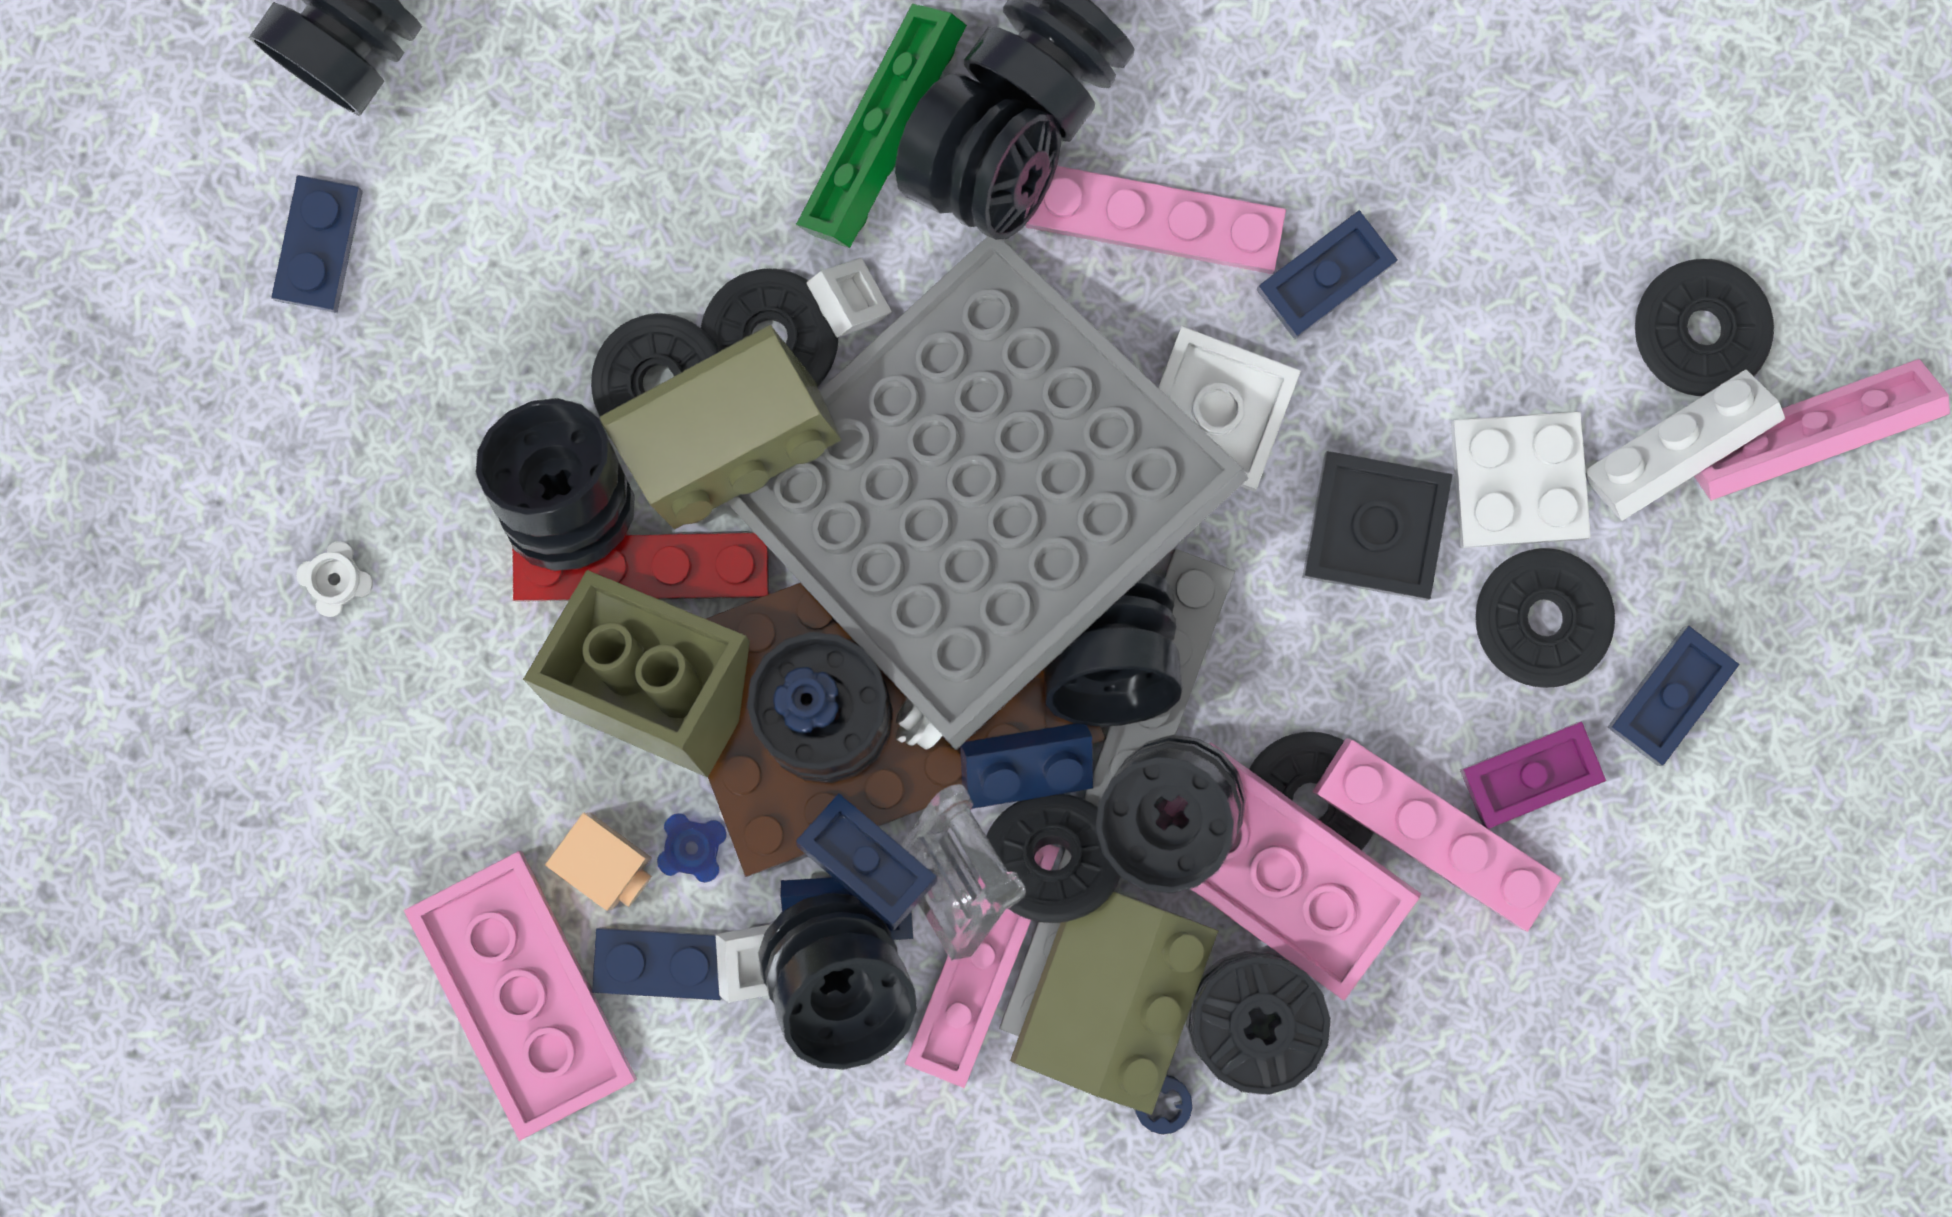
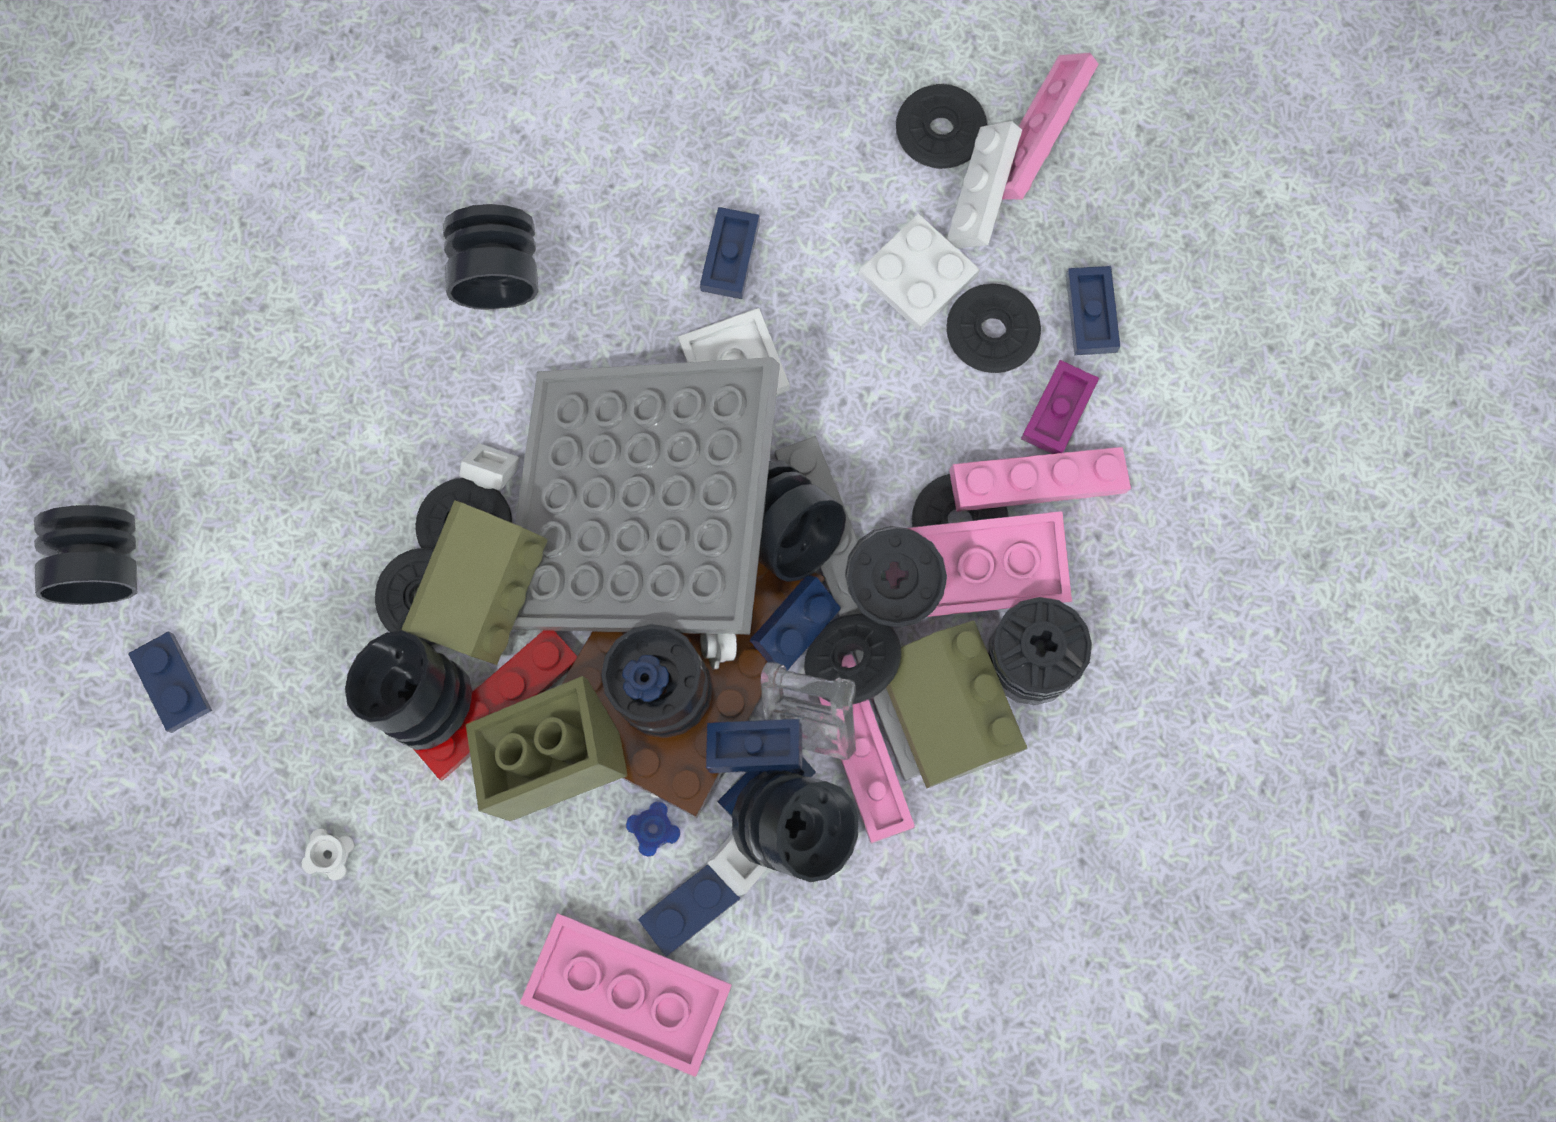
camera: 40 degrees left, 10 degrees down
(601, 863) = (609, 879): light nougat brick -> none
(871, 140) = (431, 367): green plate -> none
(977, 156) = (494, 333): black wheel -> none
(1160, 1123) = (1038, 753): dark blue bush -> none
(1161, 219) = (617, 299): bright pink plate -> none
(1377, 526) = (867, 352): black plate -> none

